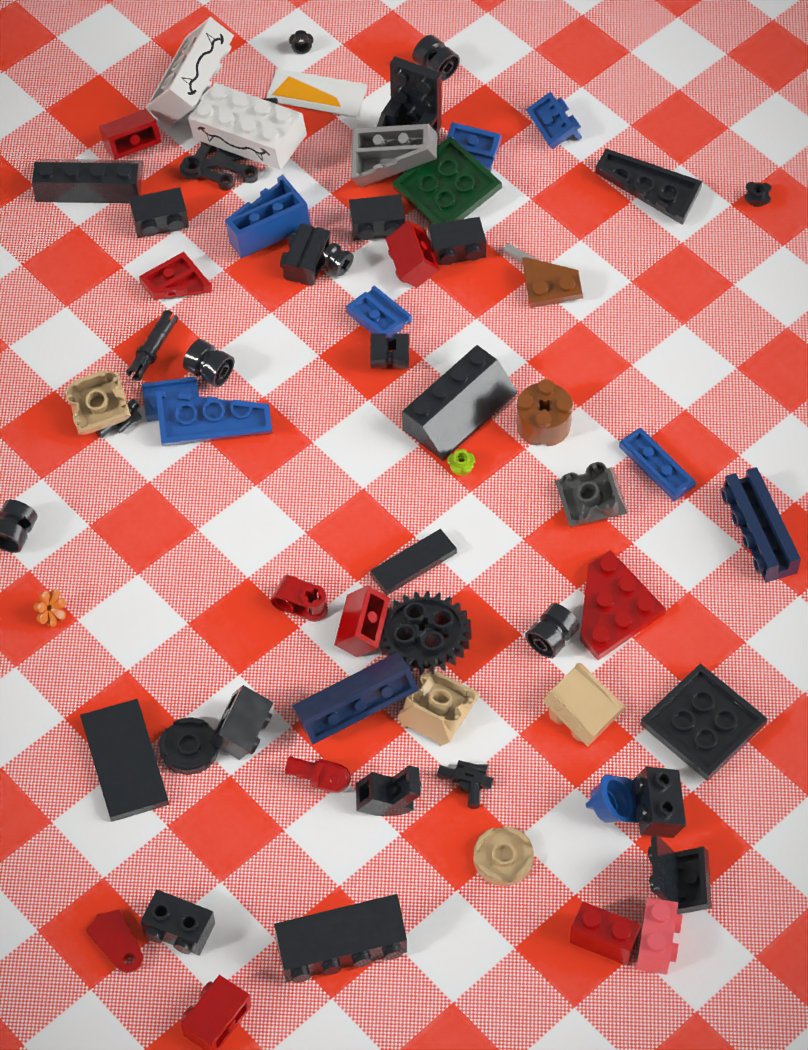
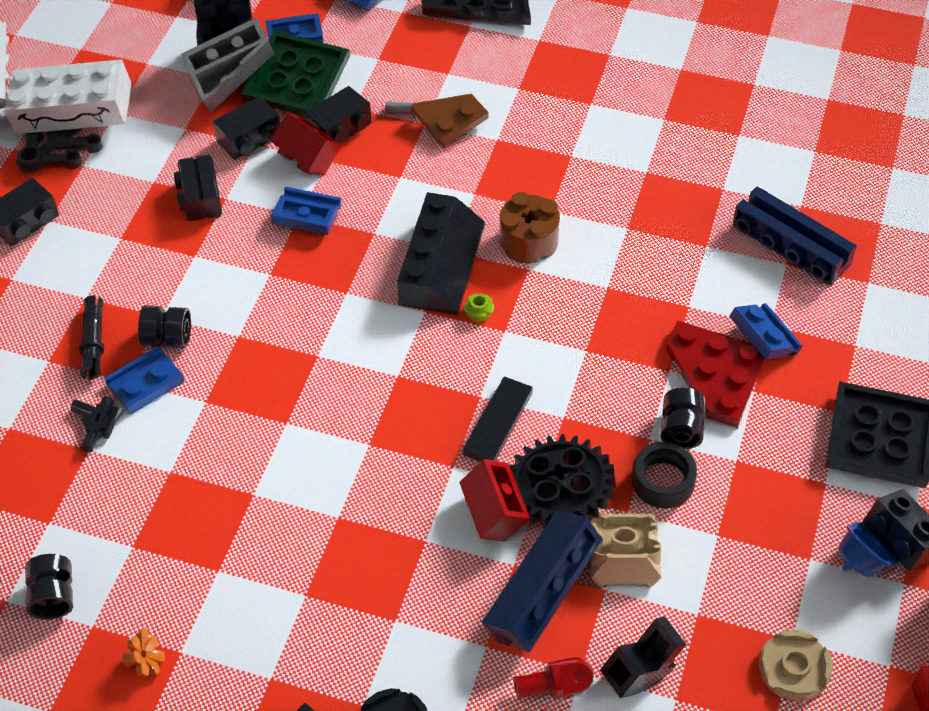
camera: 30 degrees left, 5 degrees down
(97, 401) = (68, 415): tan slope -> none
(175, 279) = (77, 264): red wing -> none
(201, 419) = (189, 384): blue wing -> none
(241, 723) = (439, 668): black brick -> none
(267, 219) = (141, 170): blue wedge -> none
(299, 597) = (410, 510): red piece -> none
(301, 47) = (77, 15): black plate -> none
(317, 92) = (128, 46): white sticker -> none
(337, 259) = (232, 179): black wheel -> none
(379, 351) = (343, 236): black wheel -> none
(470, 778) = (707, 604): black piece -> none
(510, 647) = (661, 496): none -> black tyre
(583, 704) = (761, 476): tan slope -> none
(591, 495) = (623, 280): dark grey slope -> none
(657, 464) = (659, 228): blue tile -> none
(674, 593) = (765, 331): none -> blue plate

